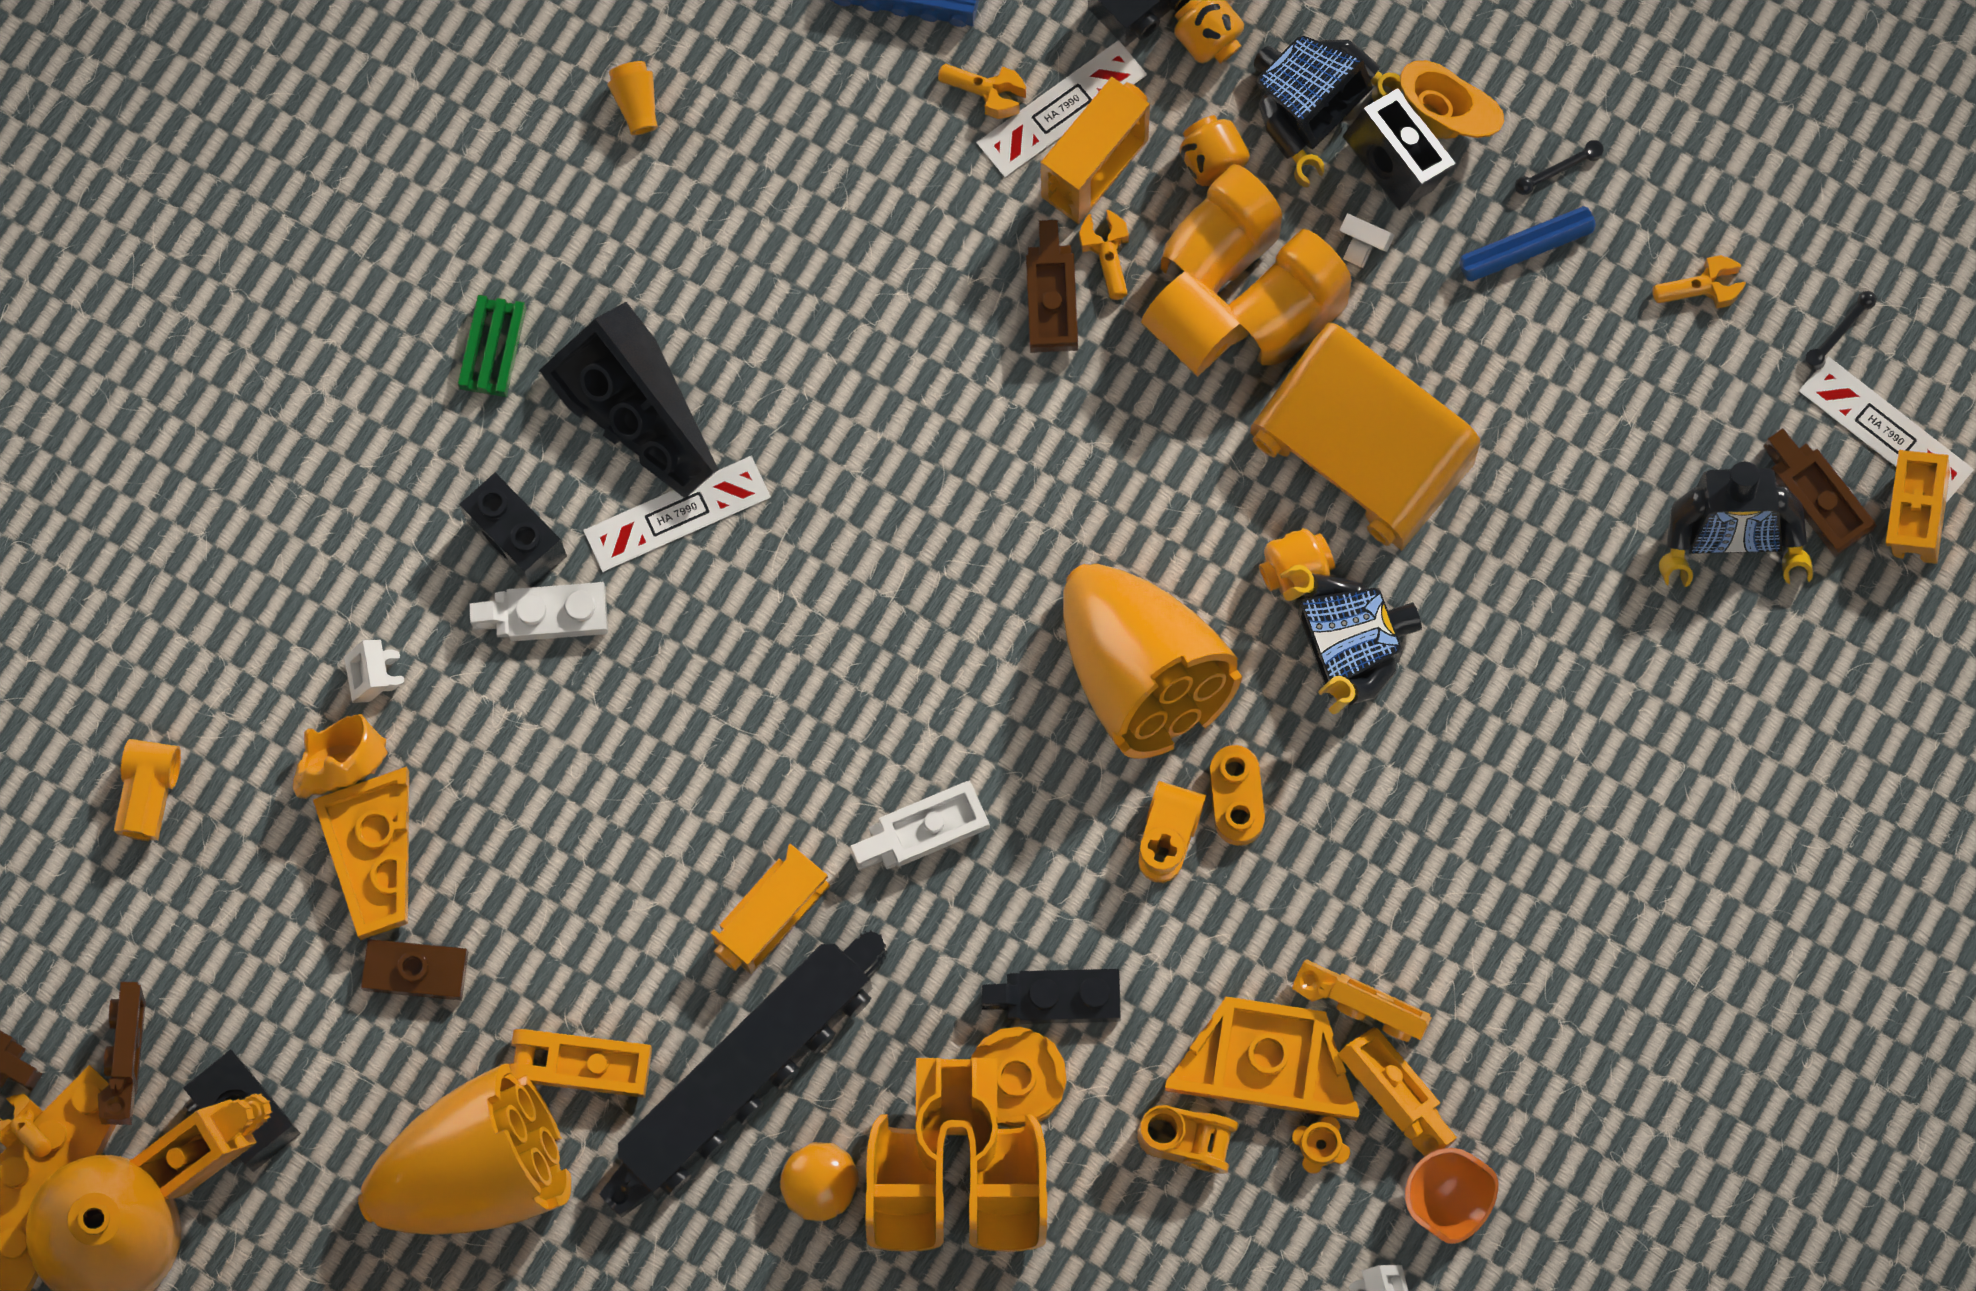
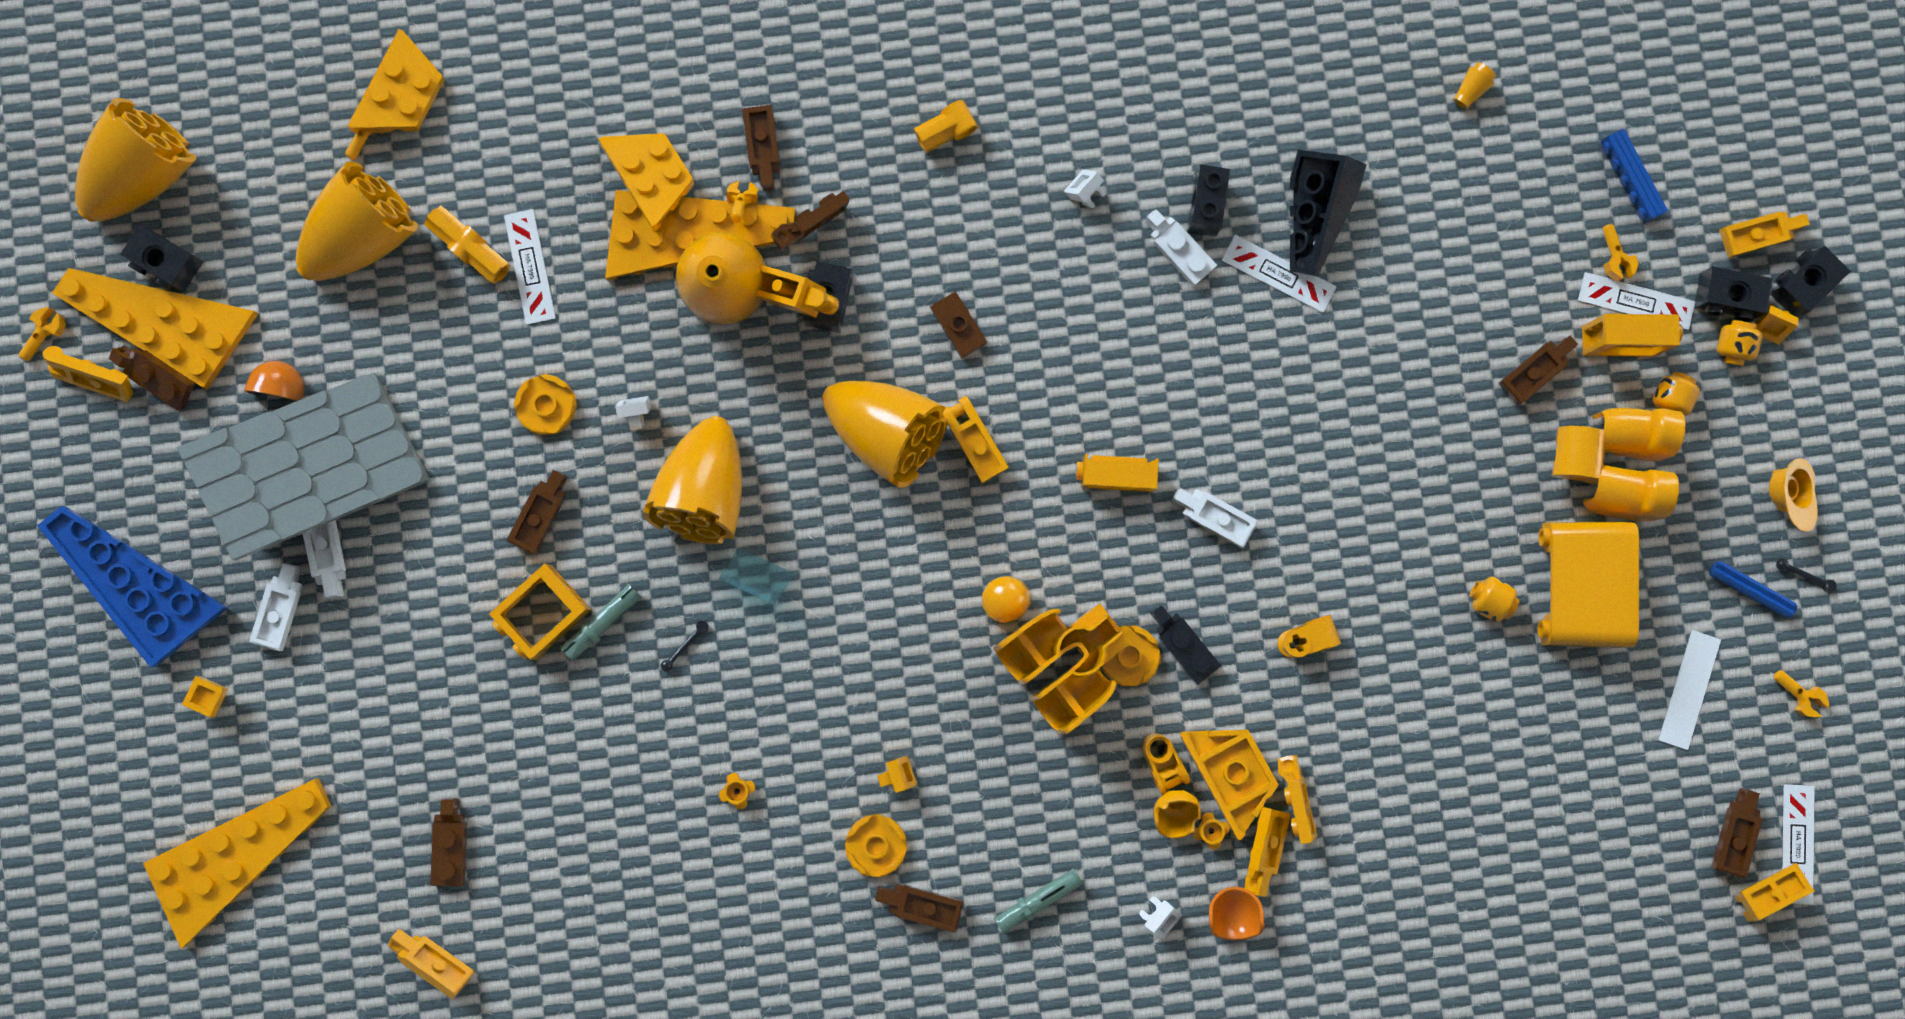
camera: 45 degrees right, 10 degrees up
(338, 756) = (1031, 206): light orange hair -> none
(370, 849) = (999, 257): light orange wing -> none
(498, 308) = (1313, 106): green tile -> none
(742, 1070) = (1032, 521): black hinge -> none
(1107, 251) = (1580, 381): light orange bar -> none
(1144, 659) = (1387, 560): light orange cylinder -> none
(1237, 793) = (1353, 656): light orange plate -> none
(1264, 1170) = (1176, 814): none -> light orange hair
(1312, 91) = (1748, 420): black torso -> none
(1350, 634) = (1479, 653): torso -> none
(1364, 238) = (1692, 504): white tile -> none
(1398, 149) = (1753, 487): black brick -> none
(1595, 414) = (1689, 689): none -> white sticker
(1736, 514) = (1695, 803): black torso -> none
(1816, 357) = (1808, 781): black hinge -> none

